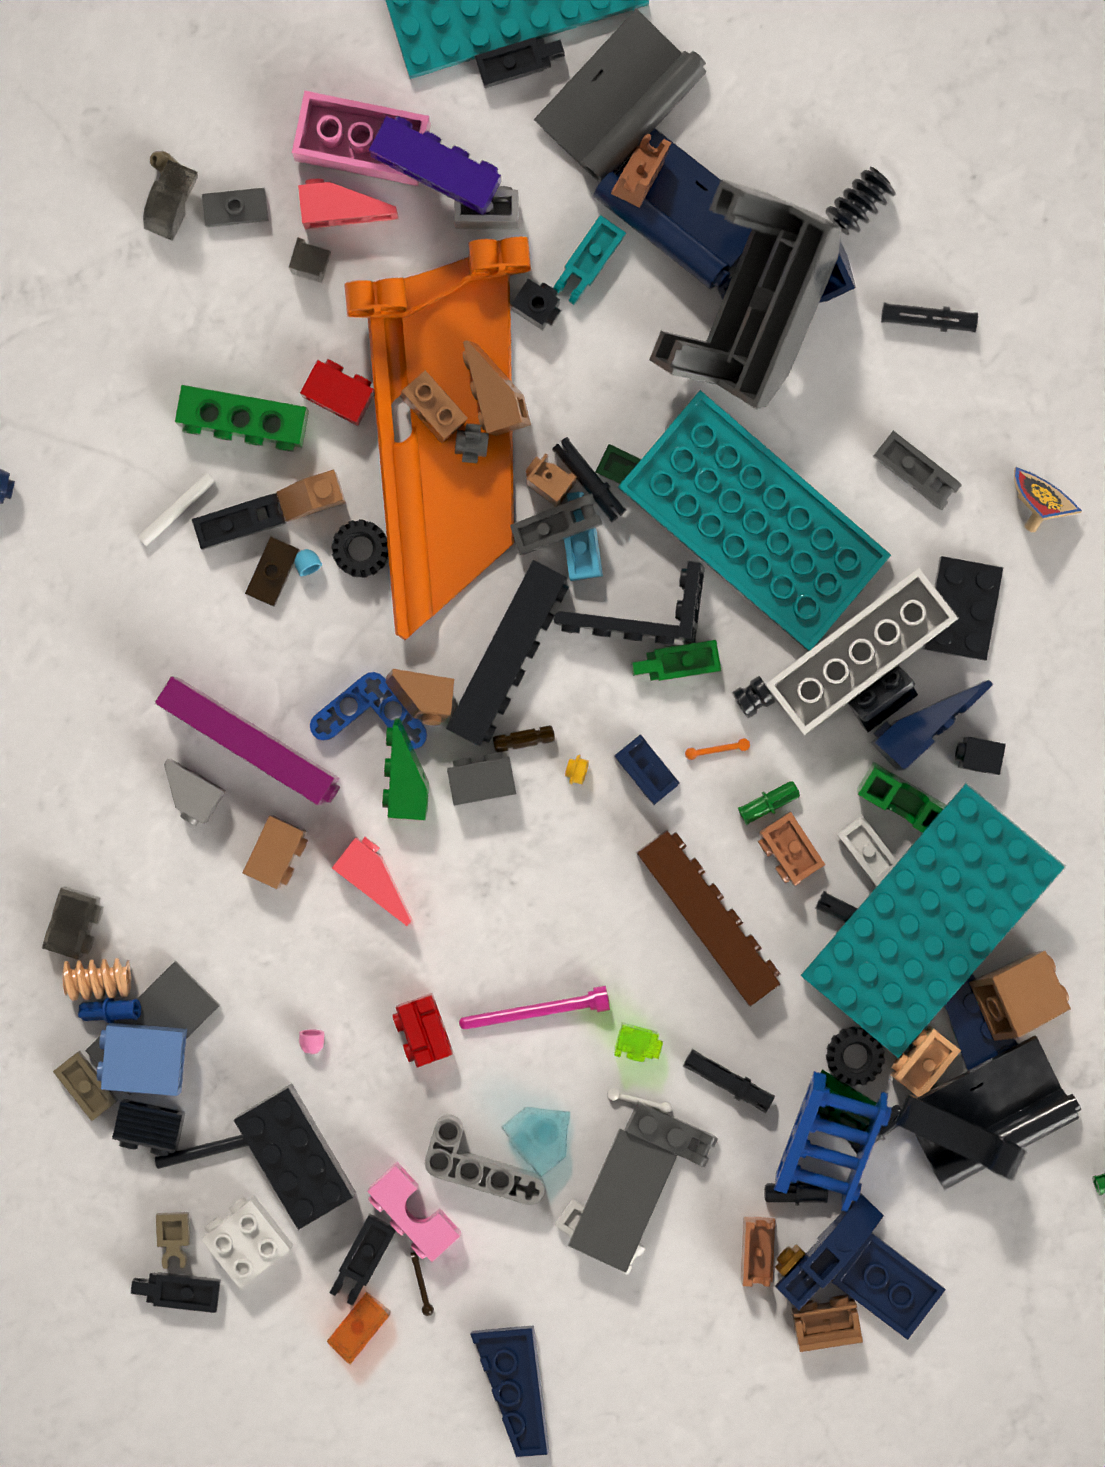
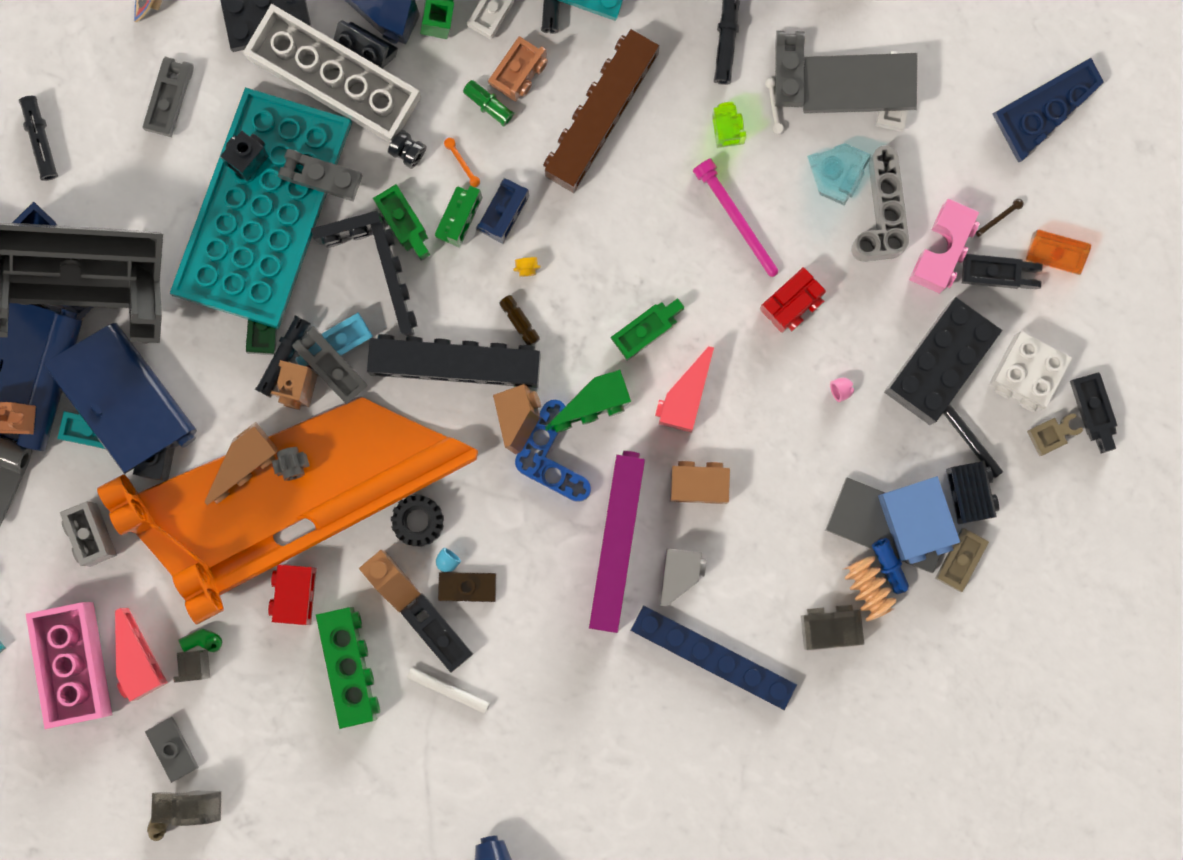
camera: 110 degrees left, 5 degrees down
(95, 791) = (713, 657): none -> dark blue plate
(333, 282) = (202, 638): none -> green arm
(433, 406) = (272, 507): medium nougat brick -> none
(436, 164) = (63, 588): dark purple brick -> none
(459, 866) = (646, 328): none -> green hinge
(481, 780) = (567, 339): dark grey hinge -> none
(612, 297) = (114, 380): none -> dark blue door
(660, 721) = (459, 215): none -> green bracket
(759, 596) = (320, 175): none -> dark grey plate
(814, 526) = (244, 154): none -> black brick

